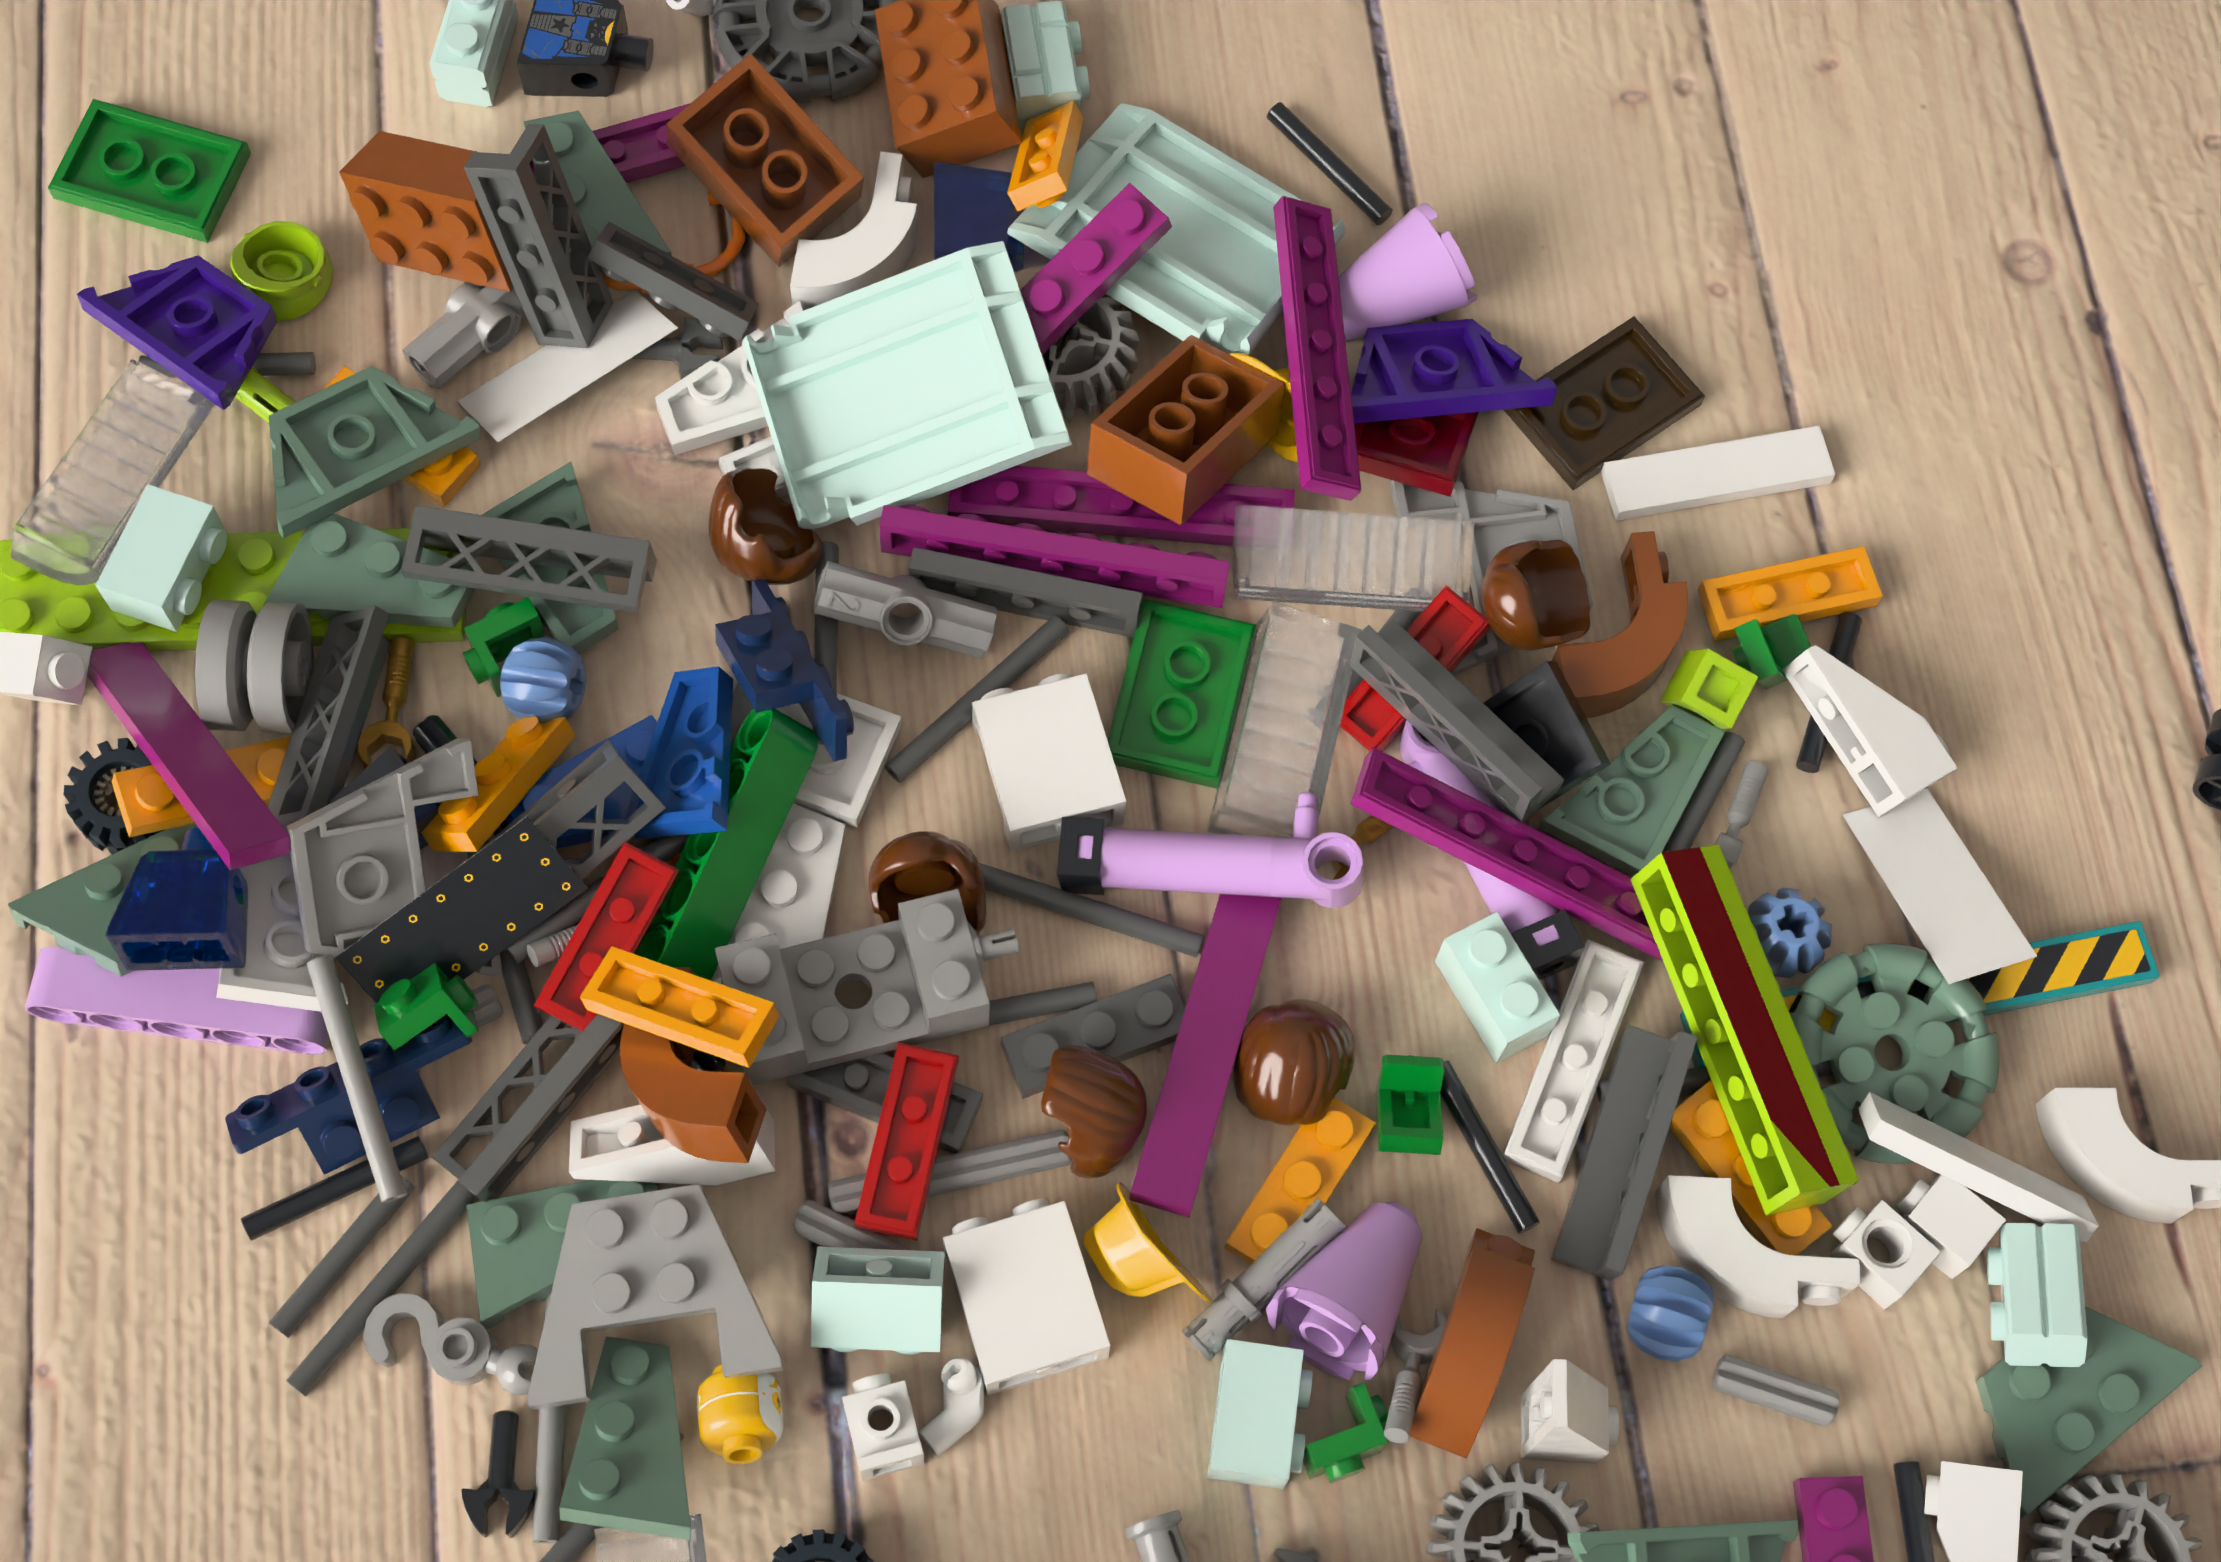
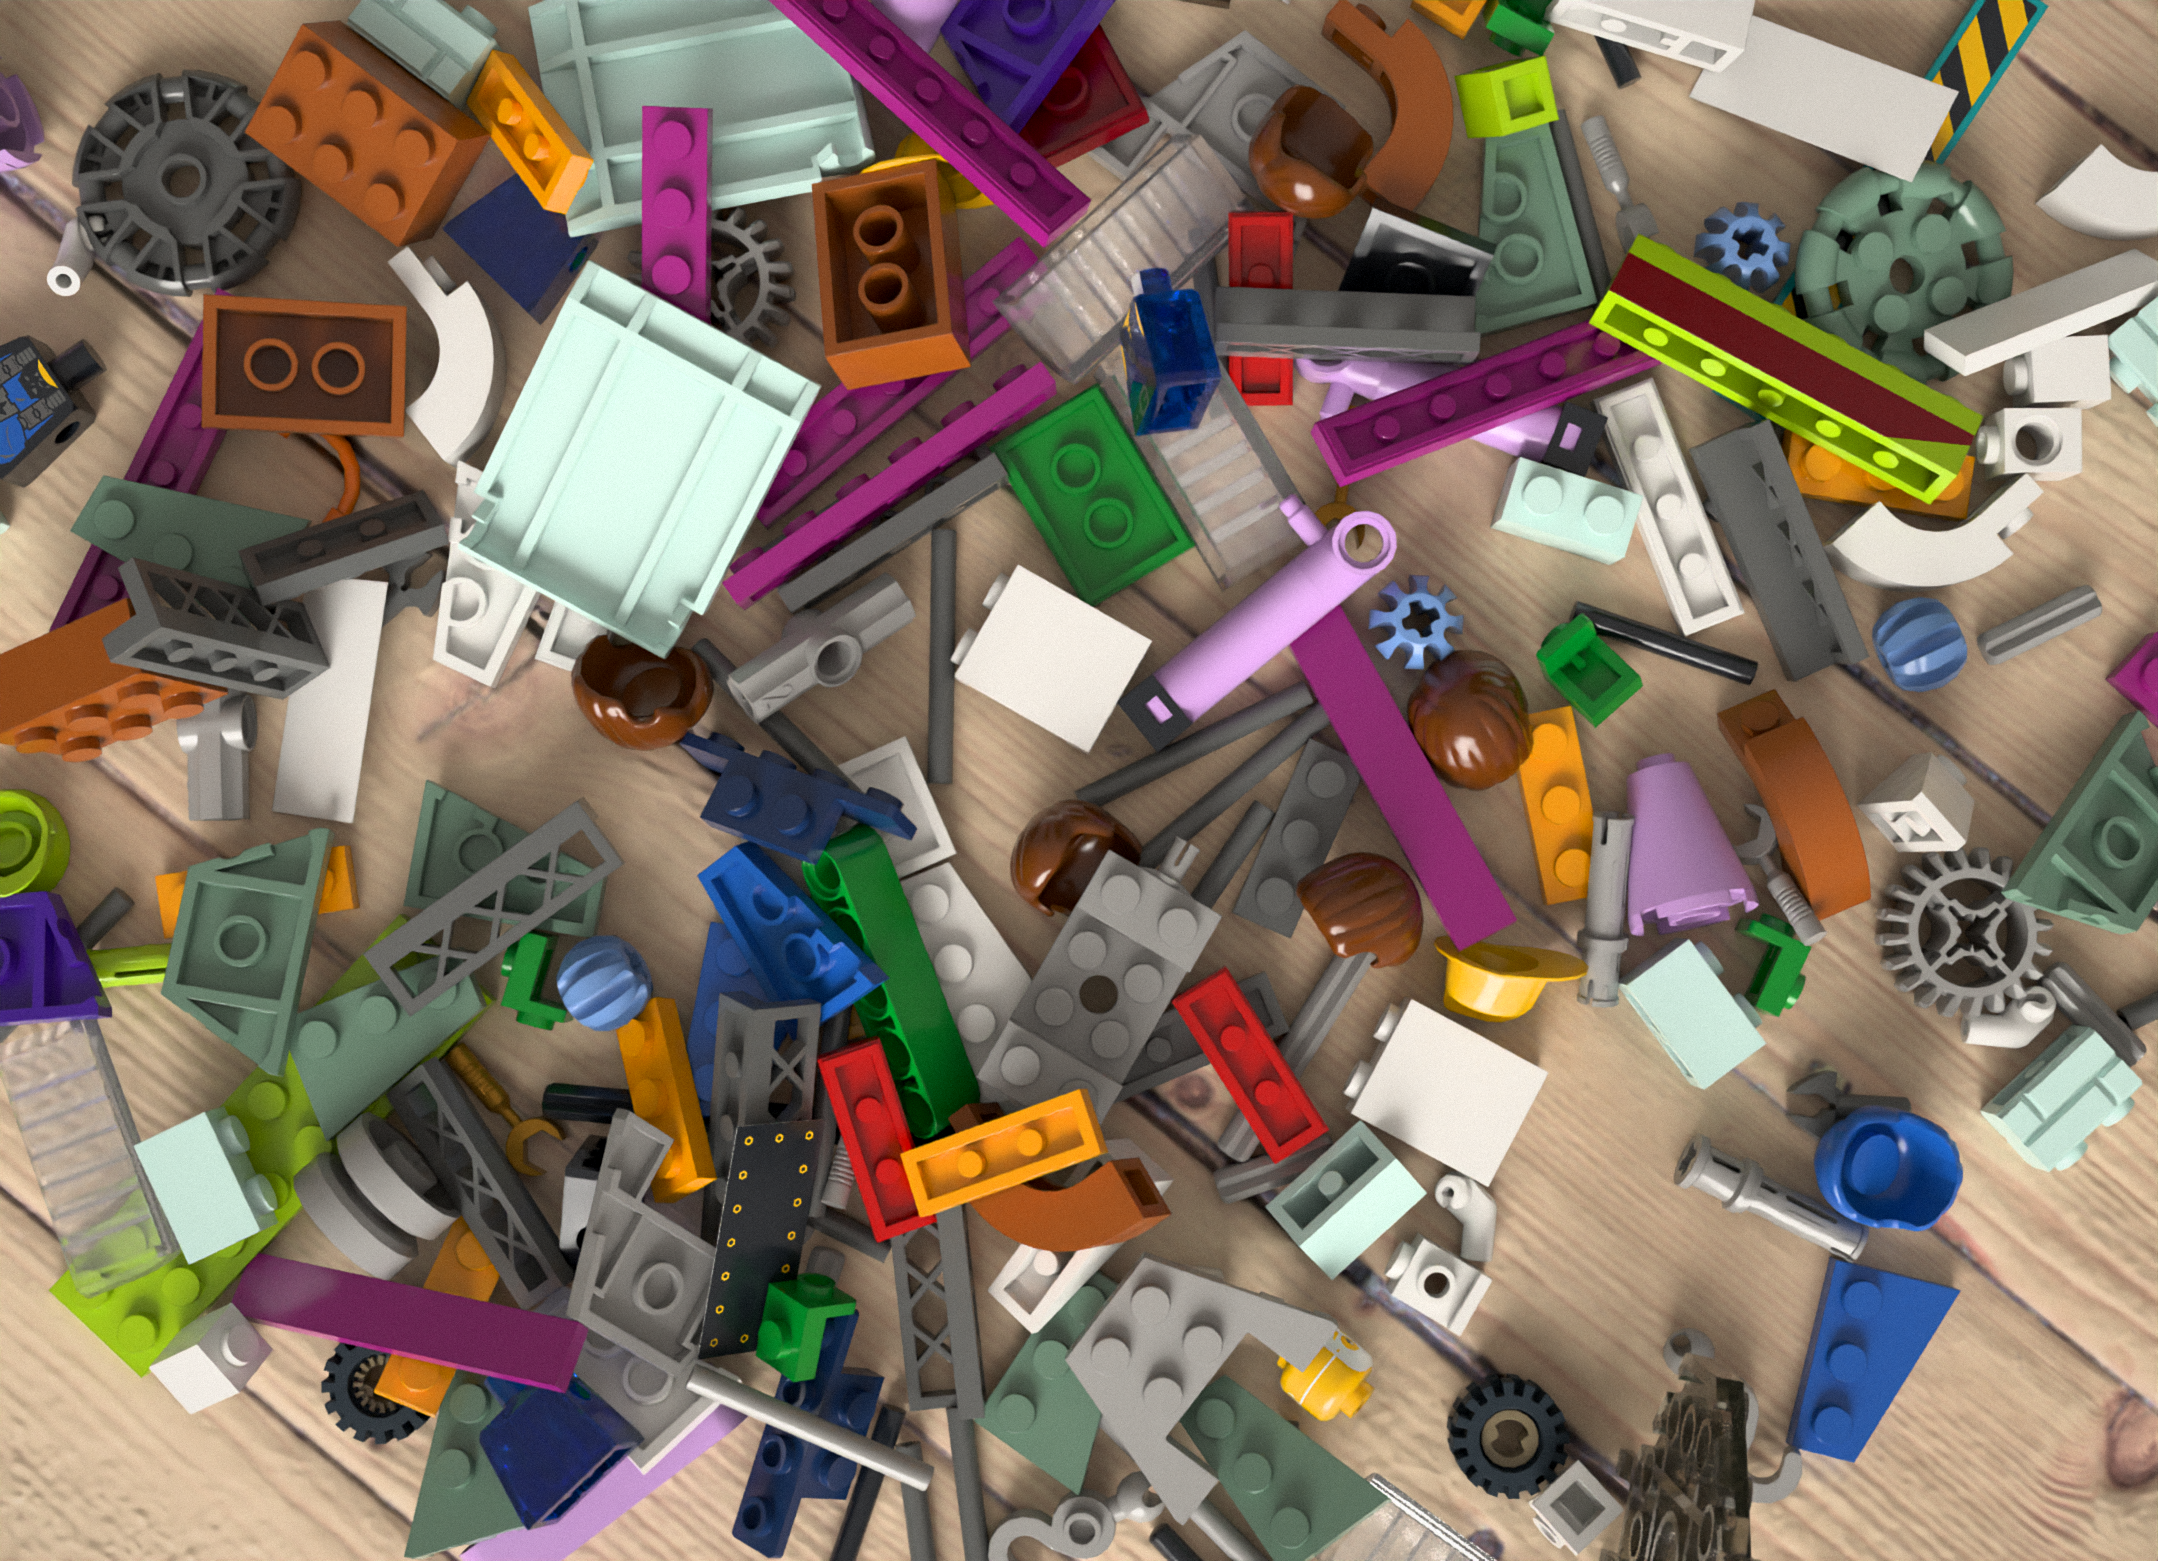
camera: 40 degrees left, 20 degrees up
(1100, 962) = (1235, 784): none -> dark grey piece
(1302, 951) = (1422, 603): none -> medium blue piece
(1326, 611) = (1167, 356): none -> clear blue torso

